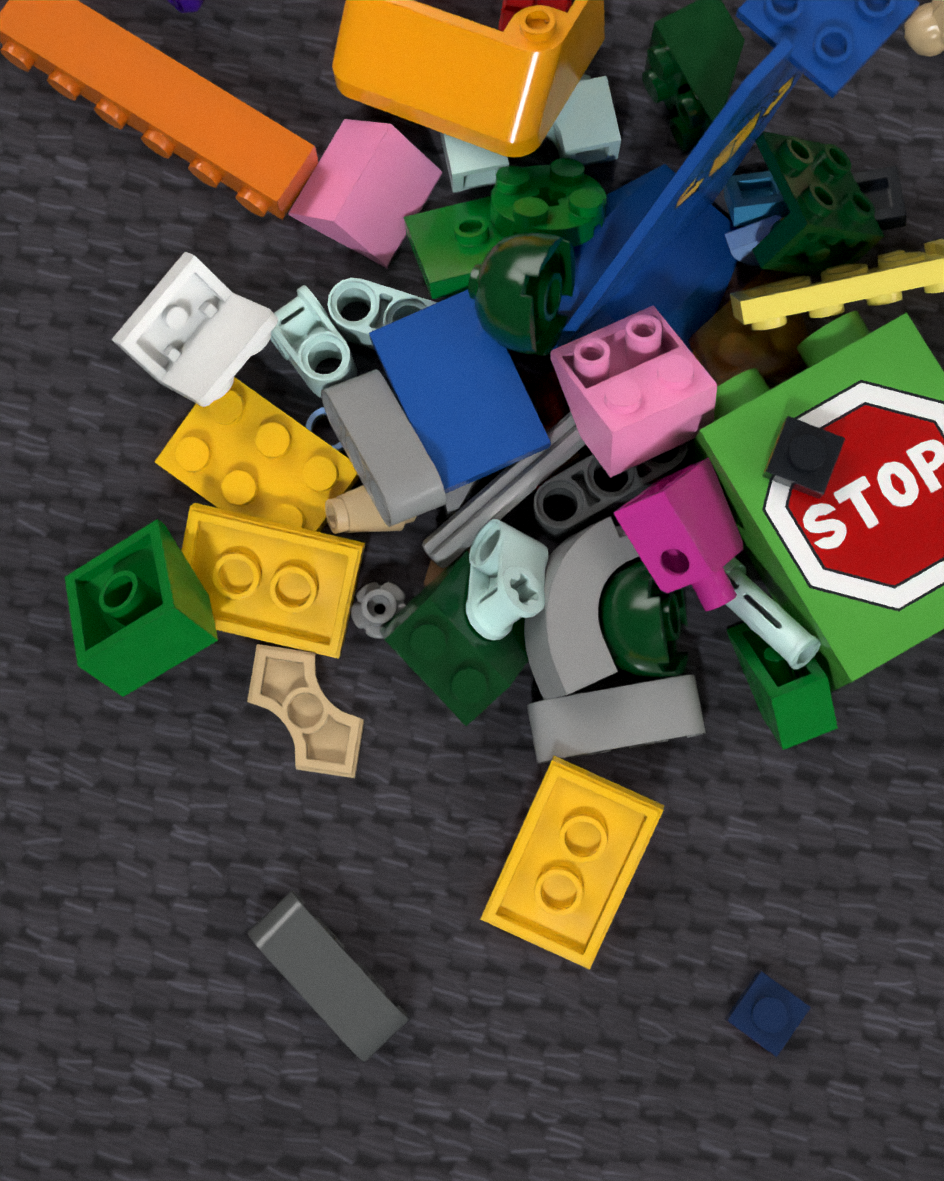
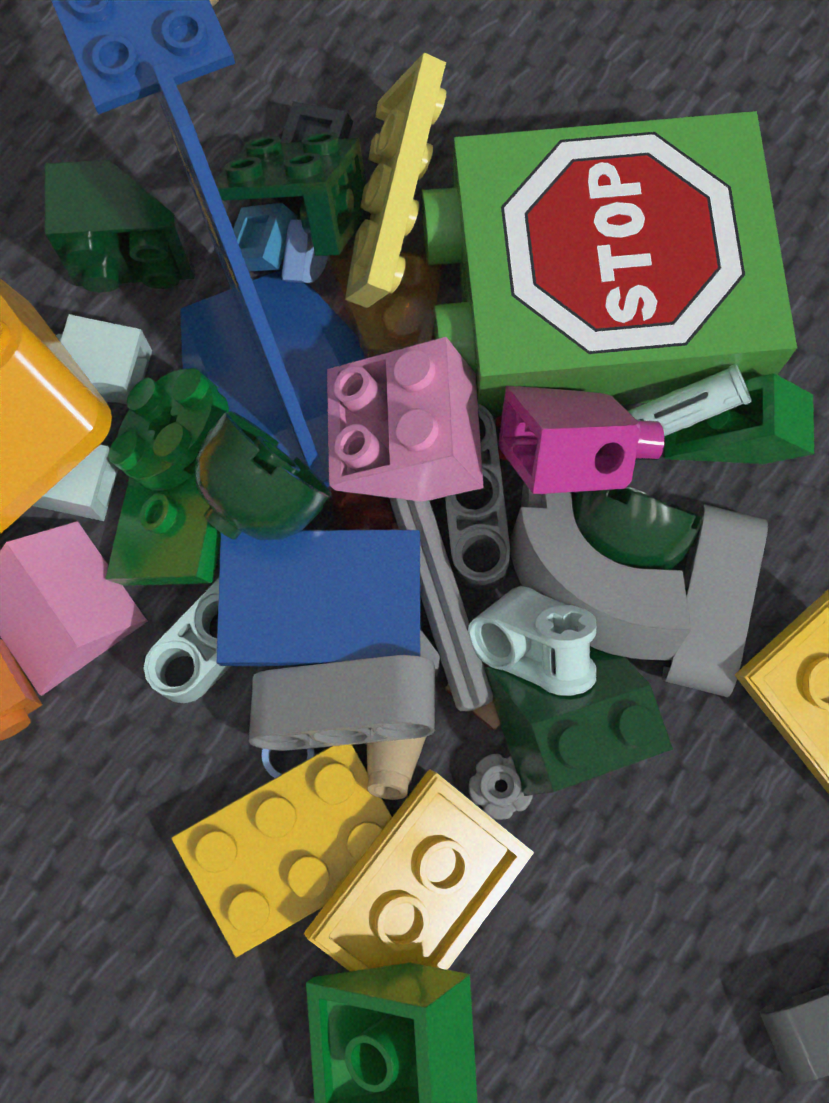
camera: 65 degrees left, 5 degrees down
(195, 332) = (121, 848): white bracket -> none
(308, 337) = (179, 734): light aqua piece -> none
(322, 734) = (542, 919): tan tile -> none
(803, 457) = (556, 289): black plate -> none

